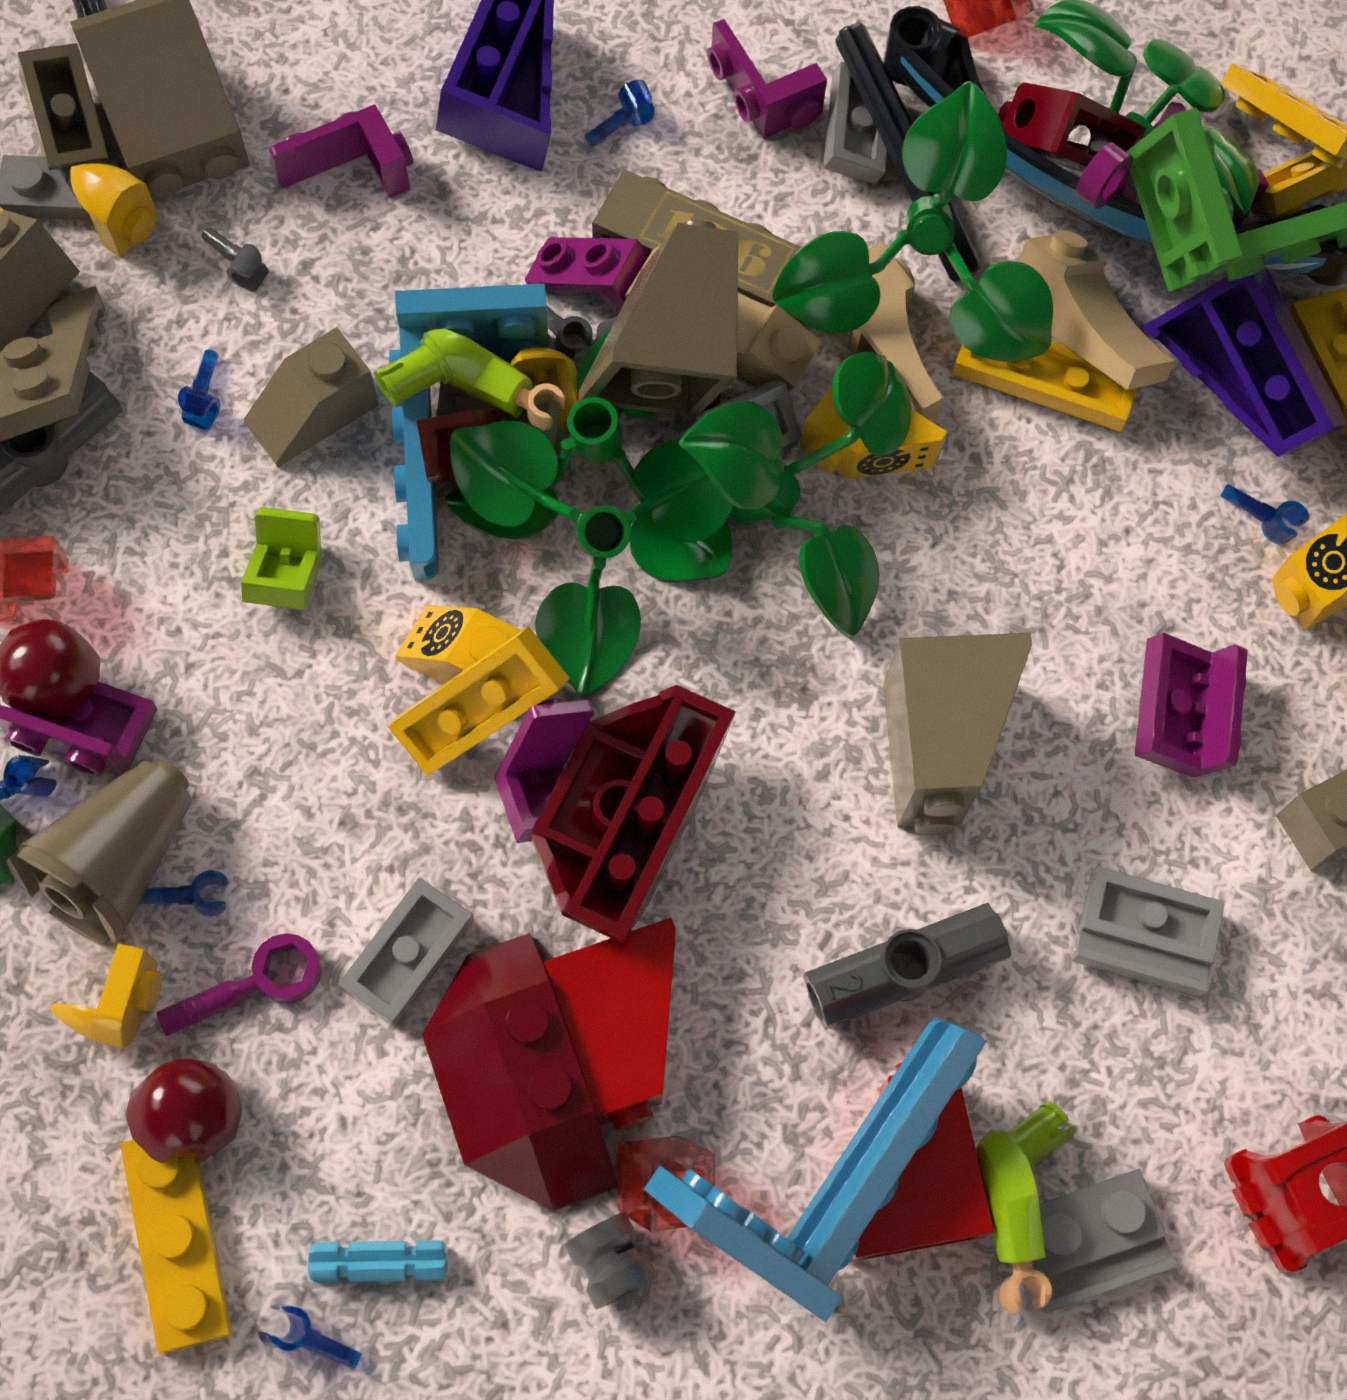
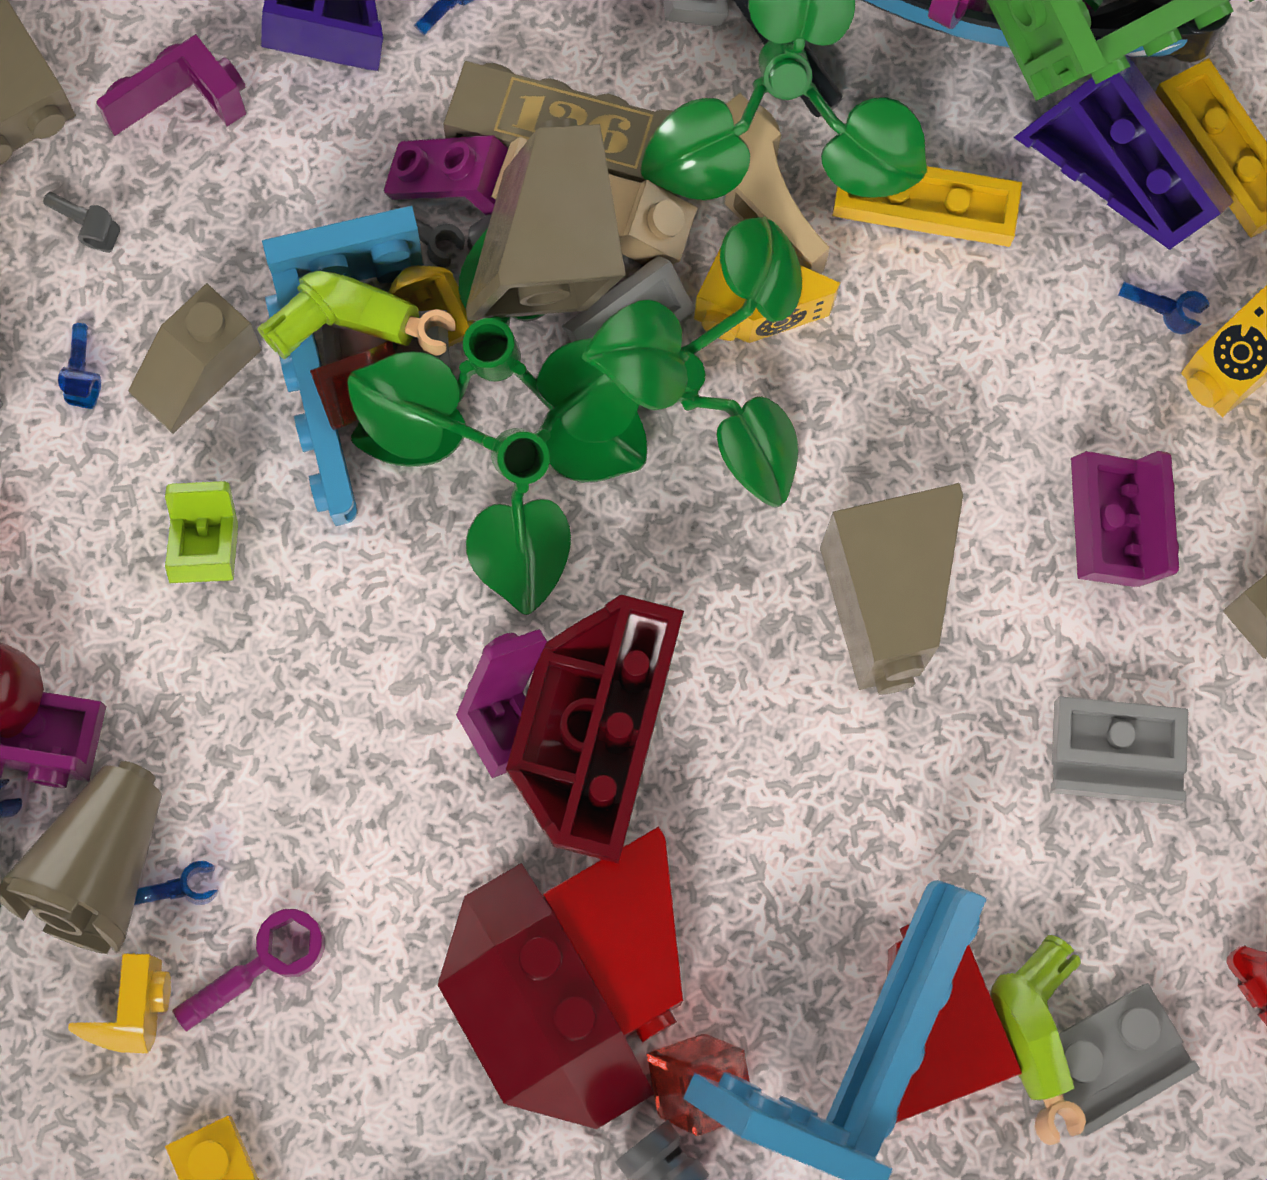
camera: 10 degrees left, 5 degrees up
(184, 1111) = (221, 1103): dark red hair -> none
(406, 952) = (405, 905): light grey plate -> none
(451, 640) = (406, 594): yellow slope -> none
(479, 701) = (429, 647): yellow plate -> none
(944, 949) = (927, 807): dark grey piece -> none
(1089, 314) = (960, 132): tan slope -> none

